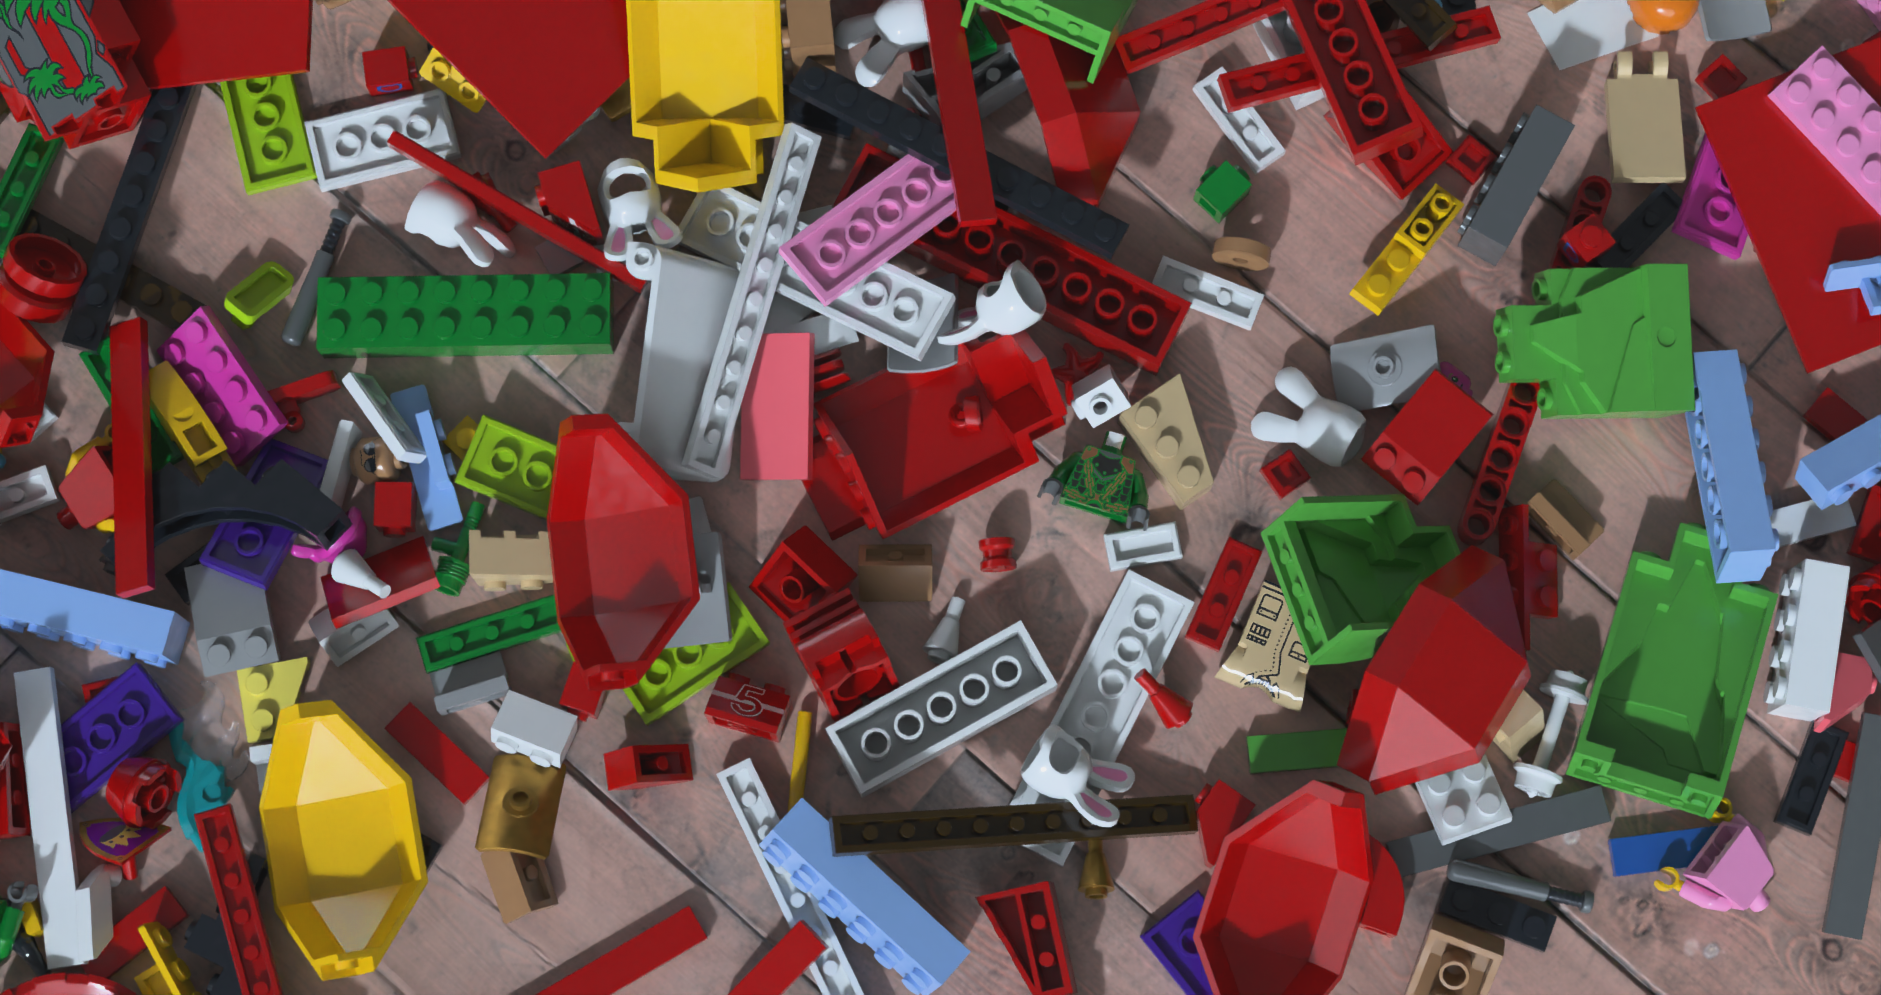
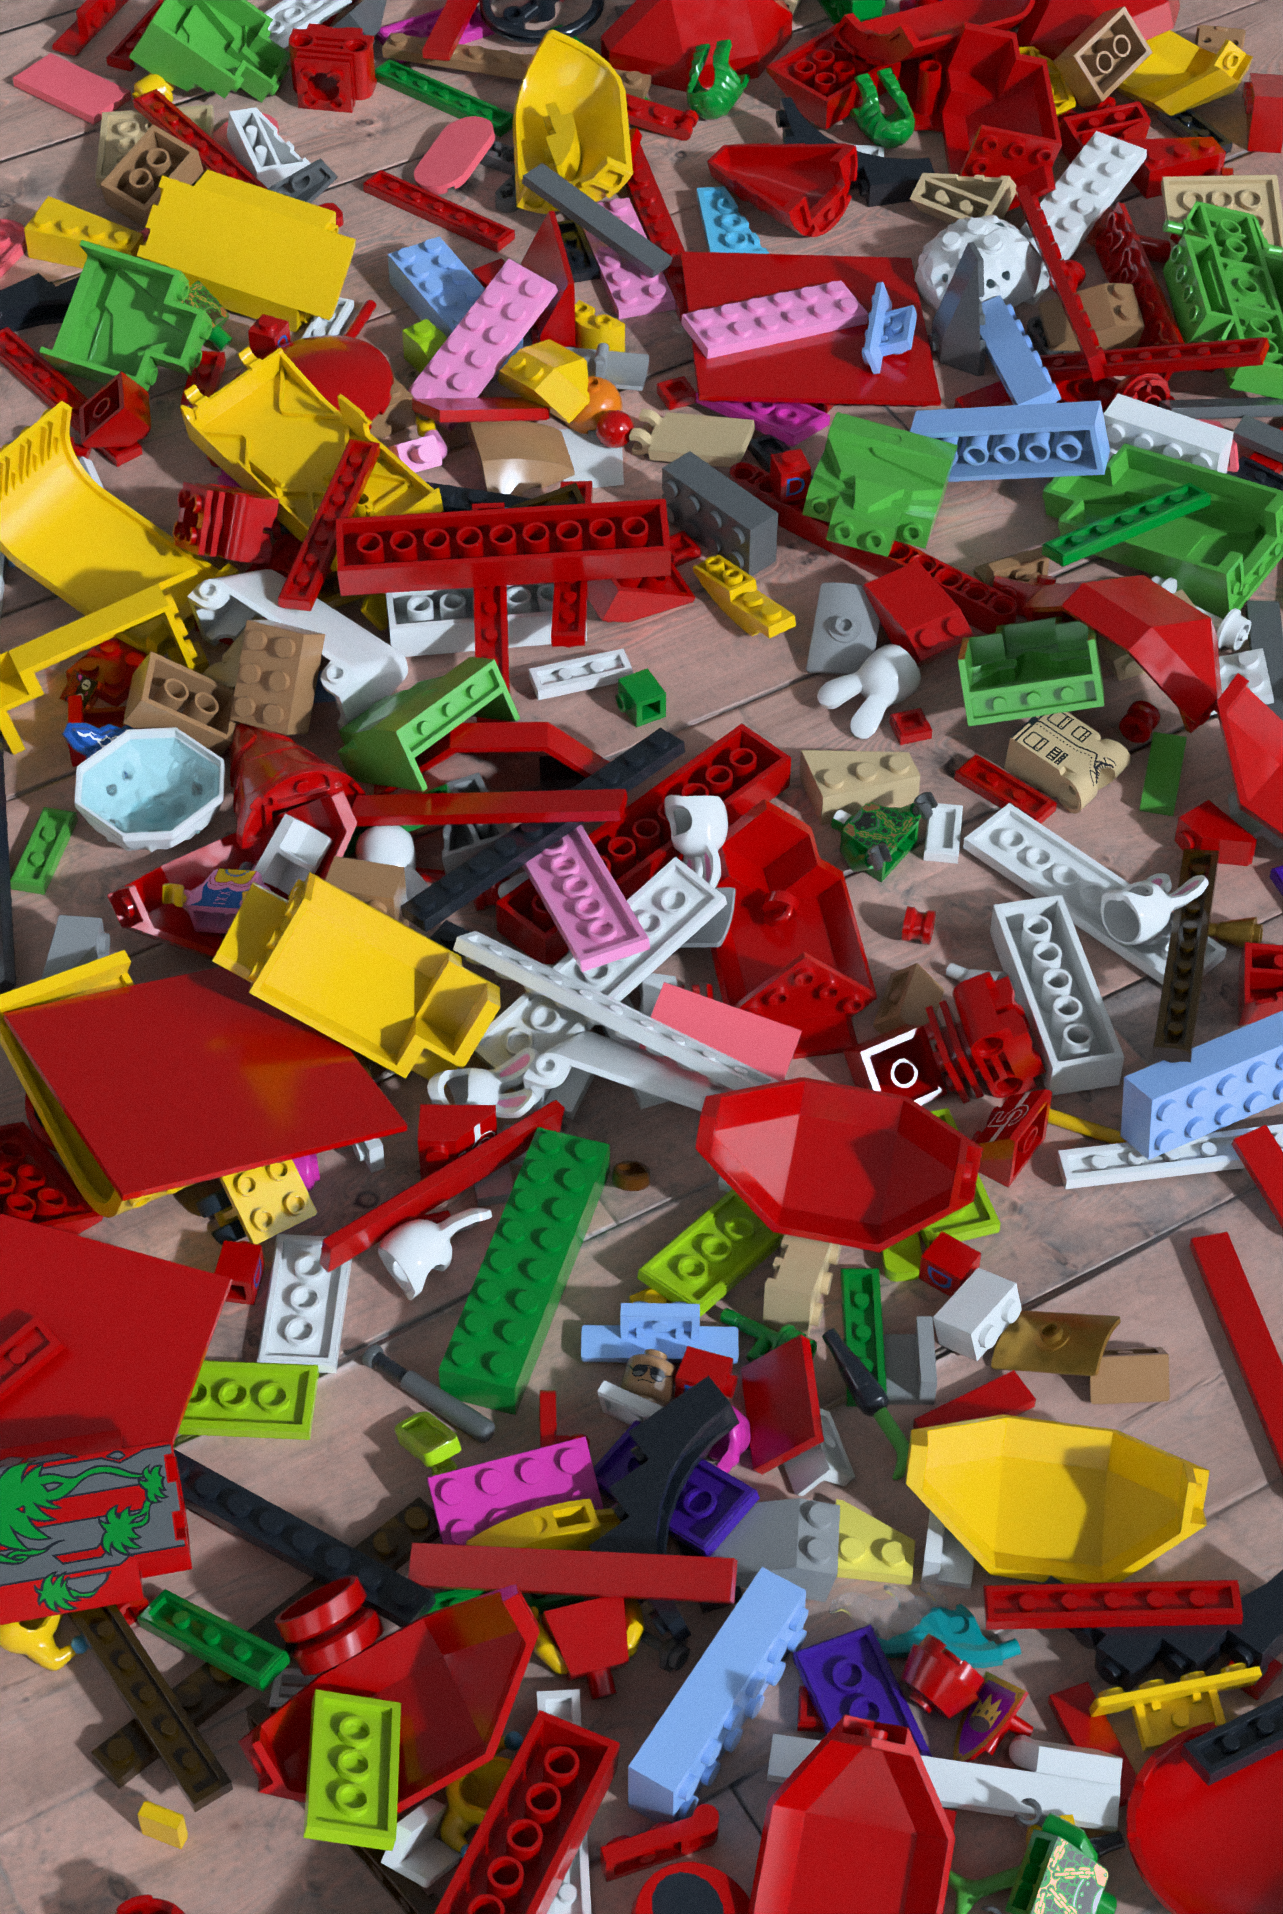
camera: 70 degrees left, 30 degrees down
(354, 571) = (767, 1412): white cone -> none
(384, 417) = (608, 1355): white tile -> none
(409, 661) = (868, 1396): none -> black piece
(603, 374) = (631, 1176): none -> reddish brown tile
(647, 766) = (1042, 1238): red slope -> none
(1099, 396) = (803, 803): white brick -> none
(1170, 705) = (1101, 841): red cone -> none
(1209, 293) = (747, 710): white plate -> none
(1241, 253) = (705, 693): medium nougat piece -> none
(1631, 32) = (614, 428): none -> red piece
(1638, 627) = (1126, 524): none -> green tile

